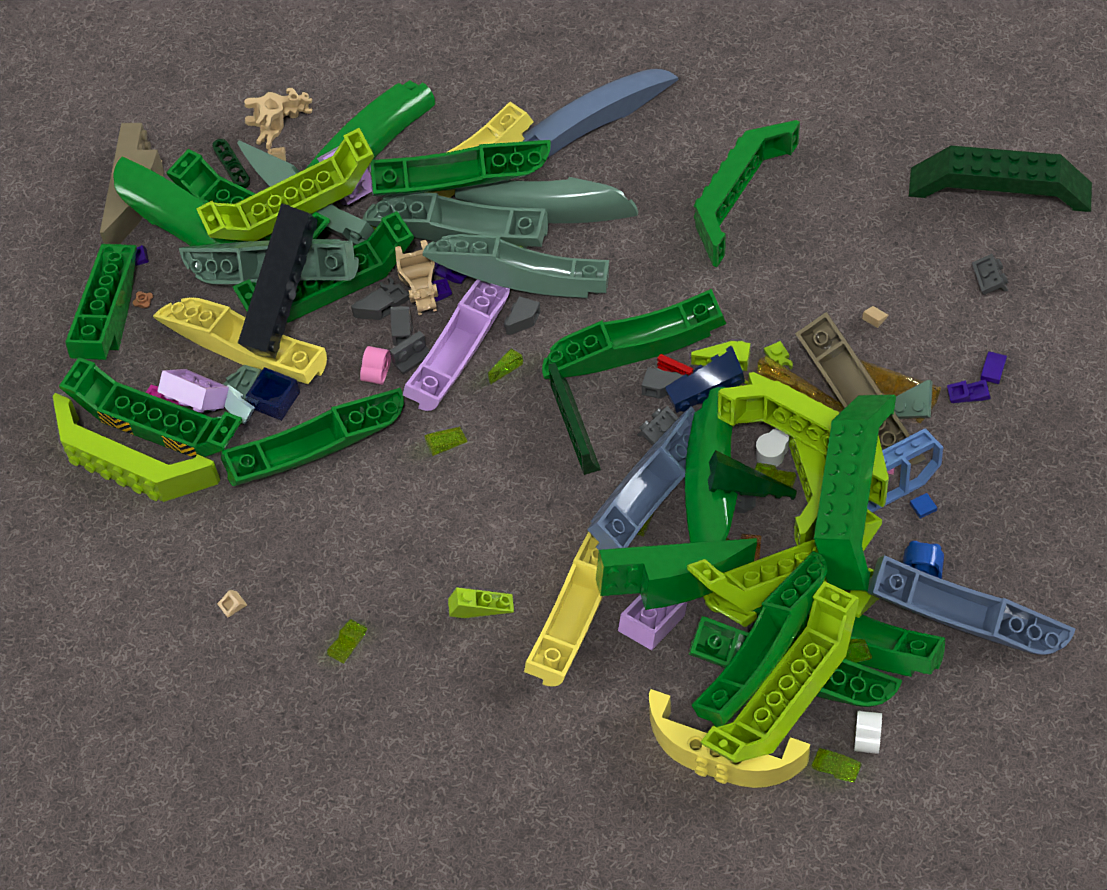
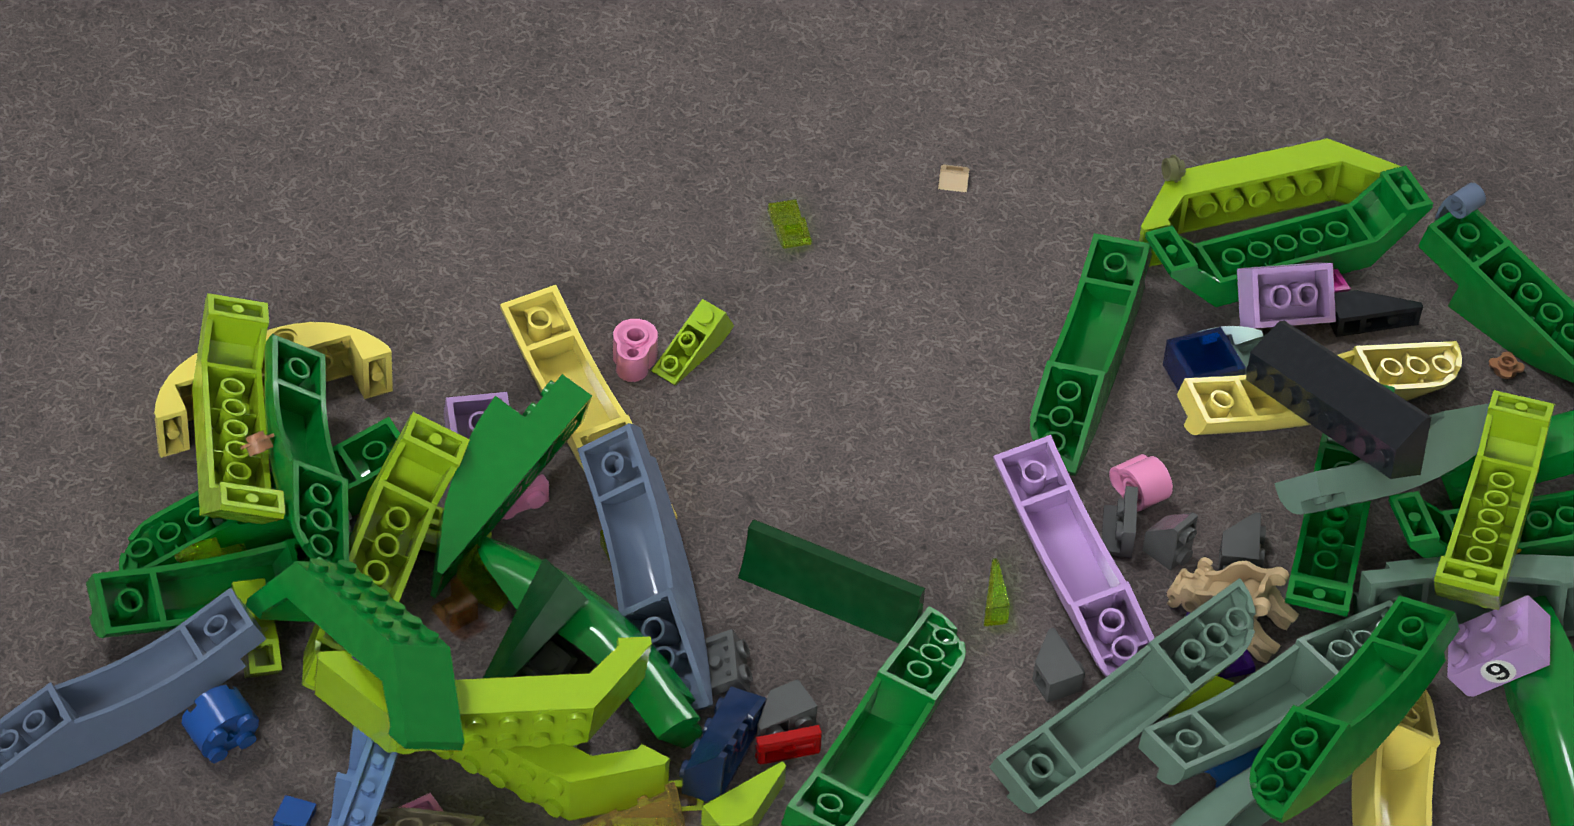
camera: 125 degrees right, 10 degrees down
(71, 341) = (1462, 202): none -> sand blue panel
(157, 475) = (1173, 168): none -> olive plate
(158, 361) = (1370, 312): none -> black slope
(444, 440) = (955, 472): clear neon green slope -> none
(520, 618) = (634, 349): none -> bright pink piece
(793, 648) = (258, 443): none -> nougat plate
(836, 764) = (116, 466): clear neon green slope -> none
(868, 732) = (115, 511): white piece -> none

